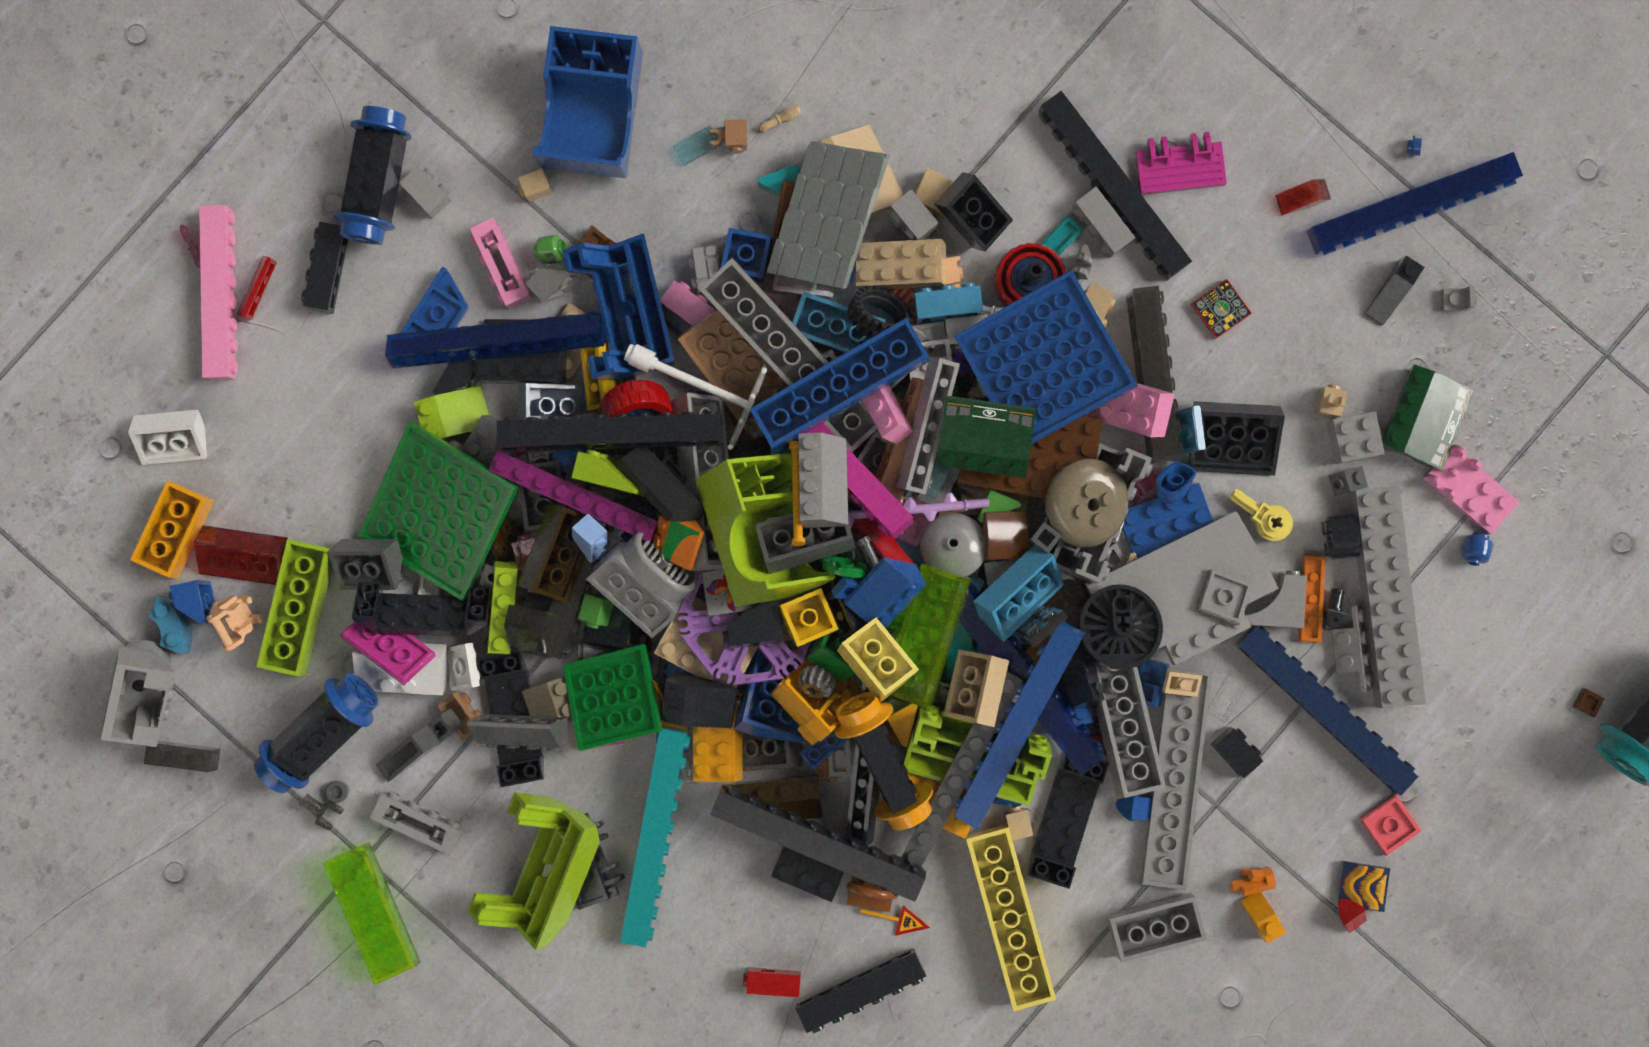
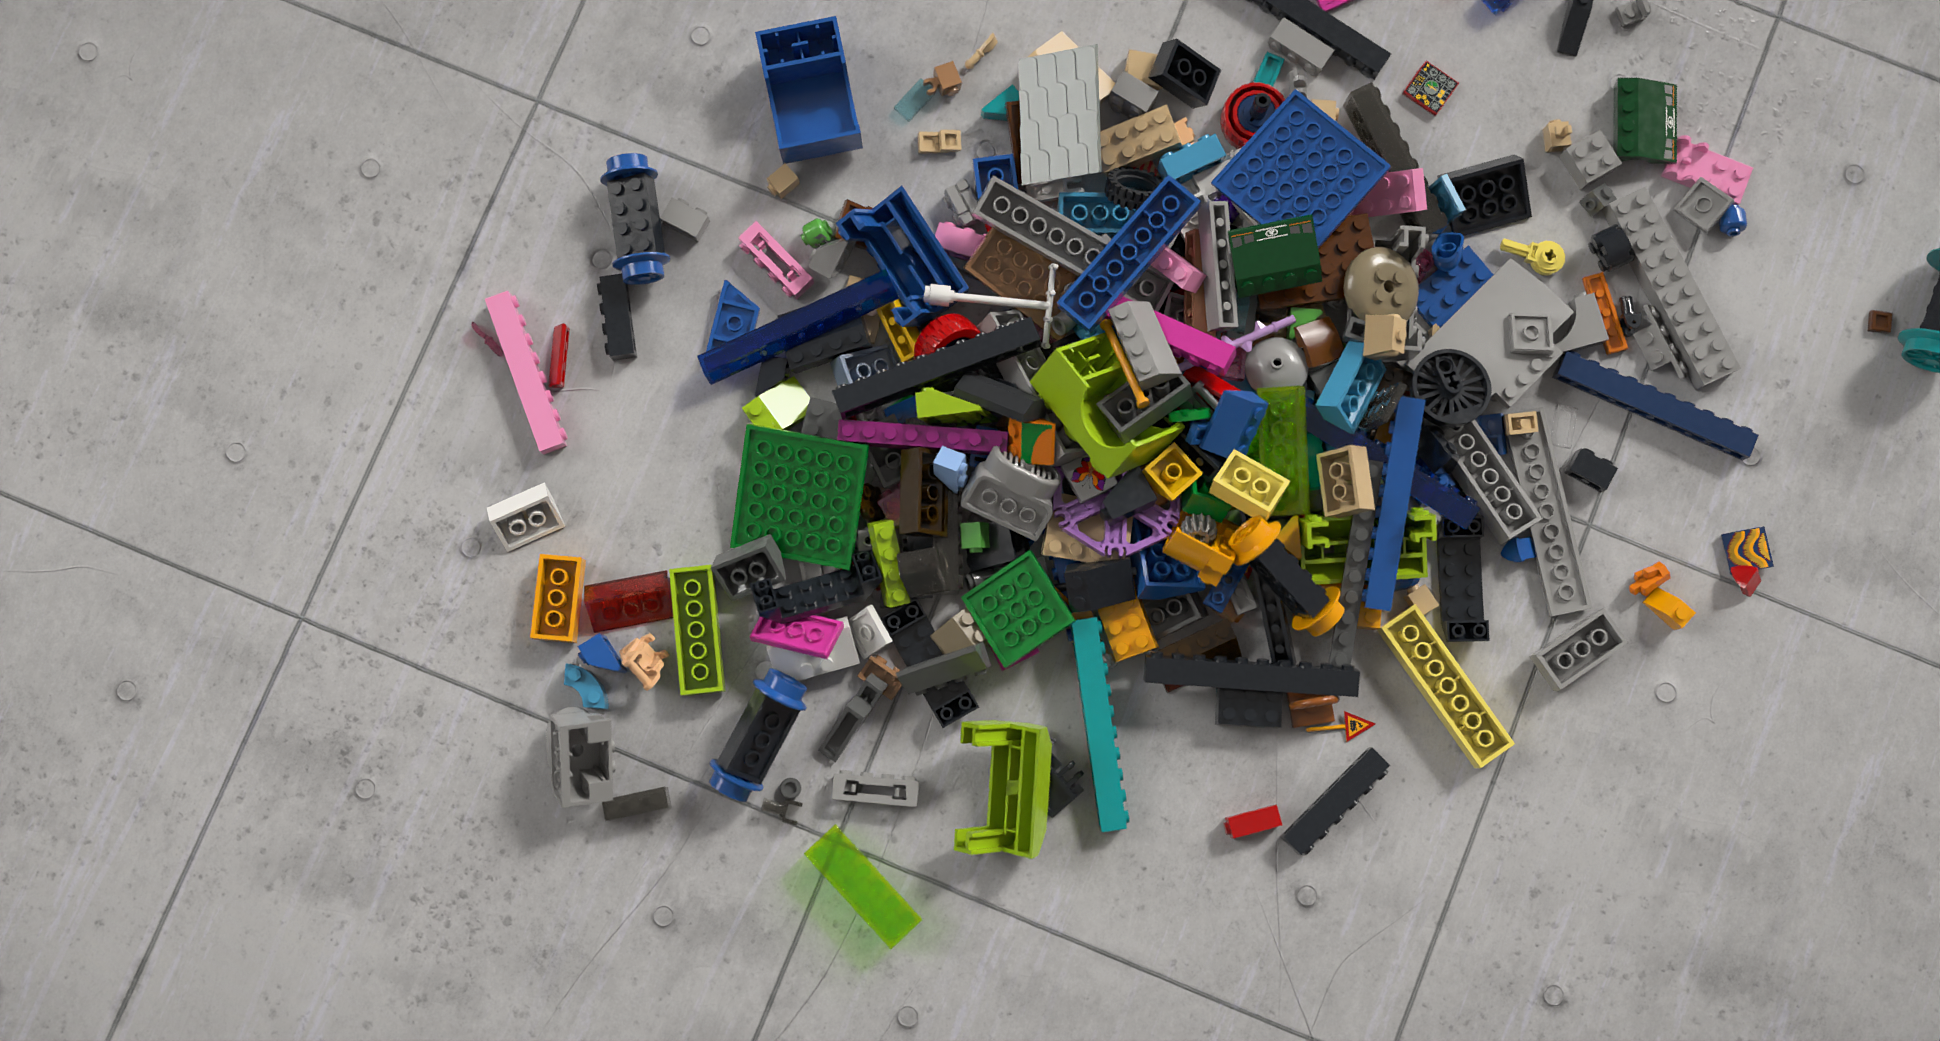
camera: 30 degrees left, 5 degrees down
(705, 197) = (939, 142): none -> tan slope
(1068, 555) = (1384, 336): none -> tan torso
(1390, 824) = (1749, 488): coral tile -> none
(1453, 523) = (1703, 205): none -> light grey tile

